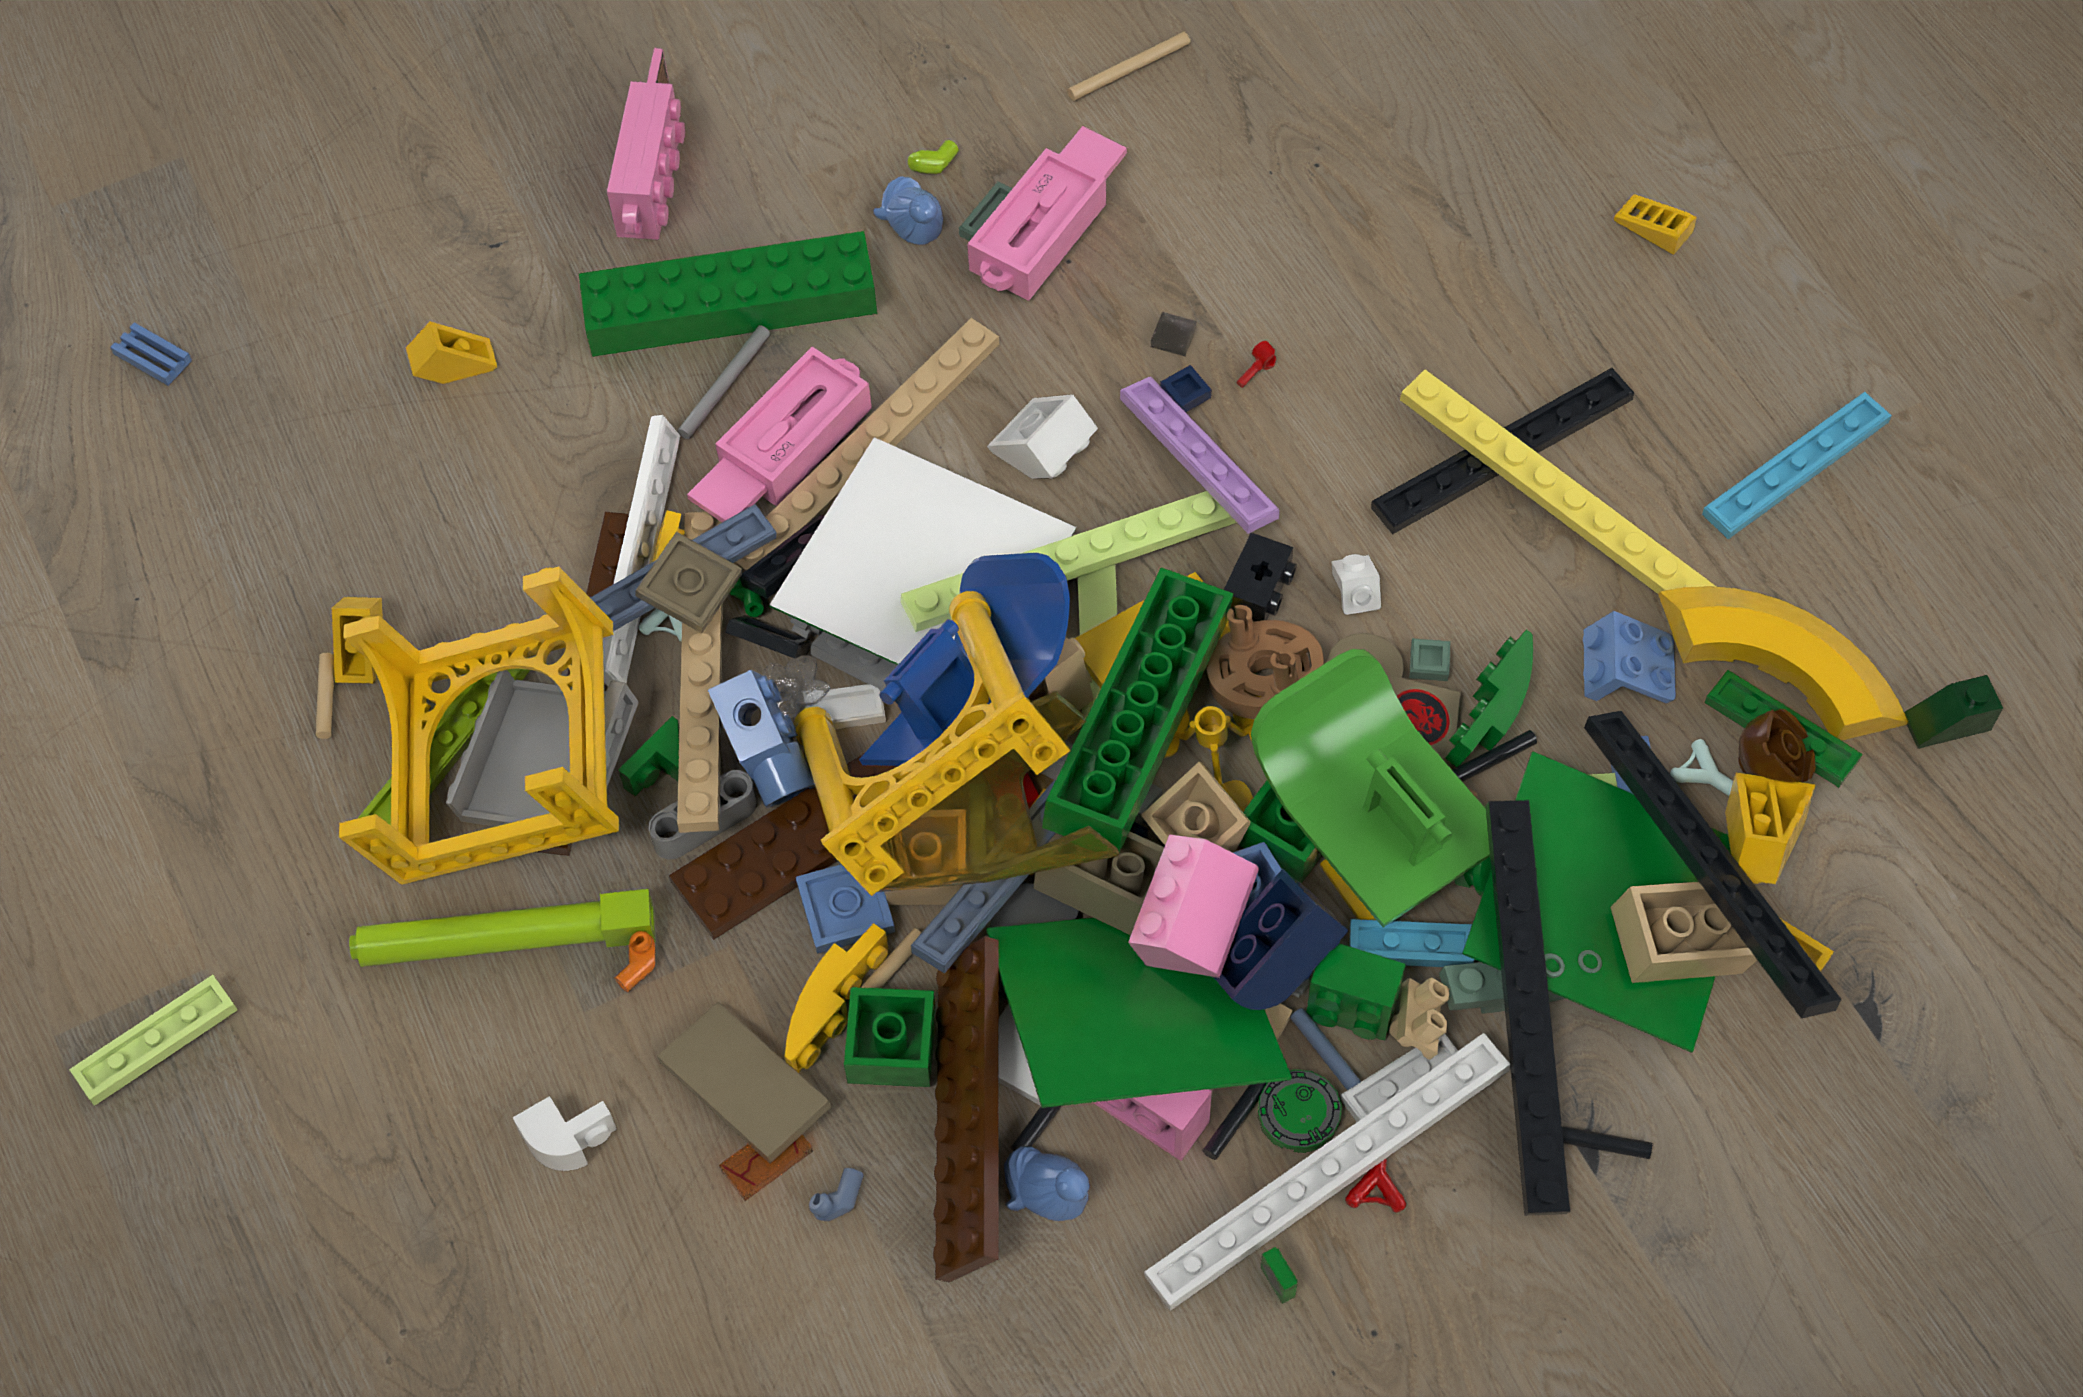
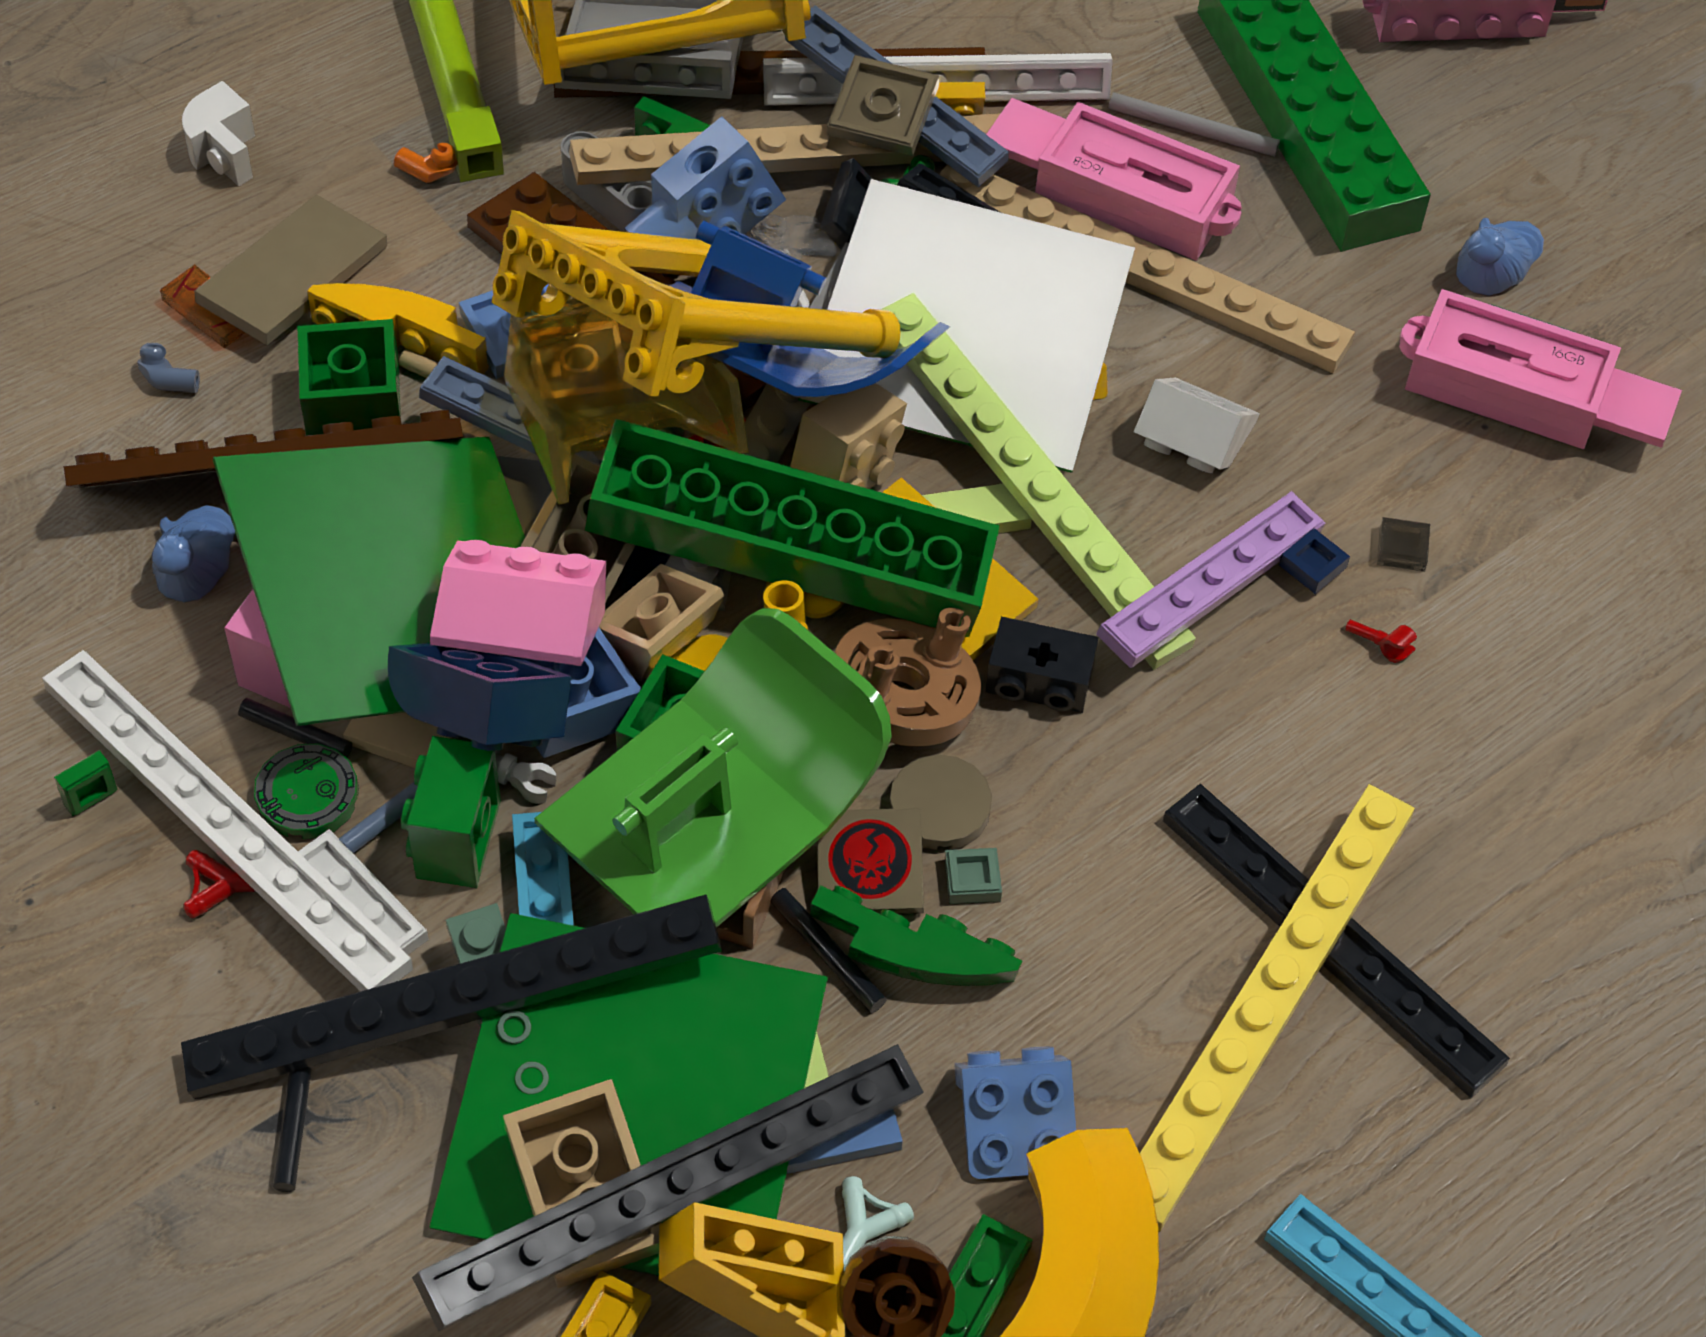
camera: 75 degrees right, 5 degrees down
(933, 161) = (1584, 268): lime arm -> none
(1358, 583) = (1066, 773): white bracket -> none
(1420, 1016) = (427, 889): tan hips -> none

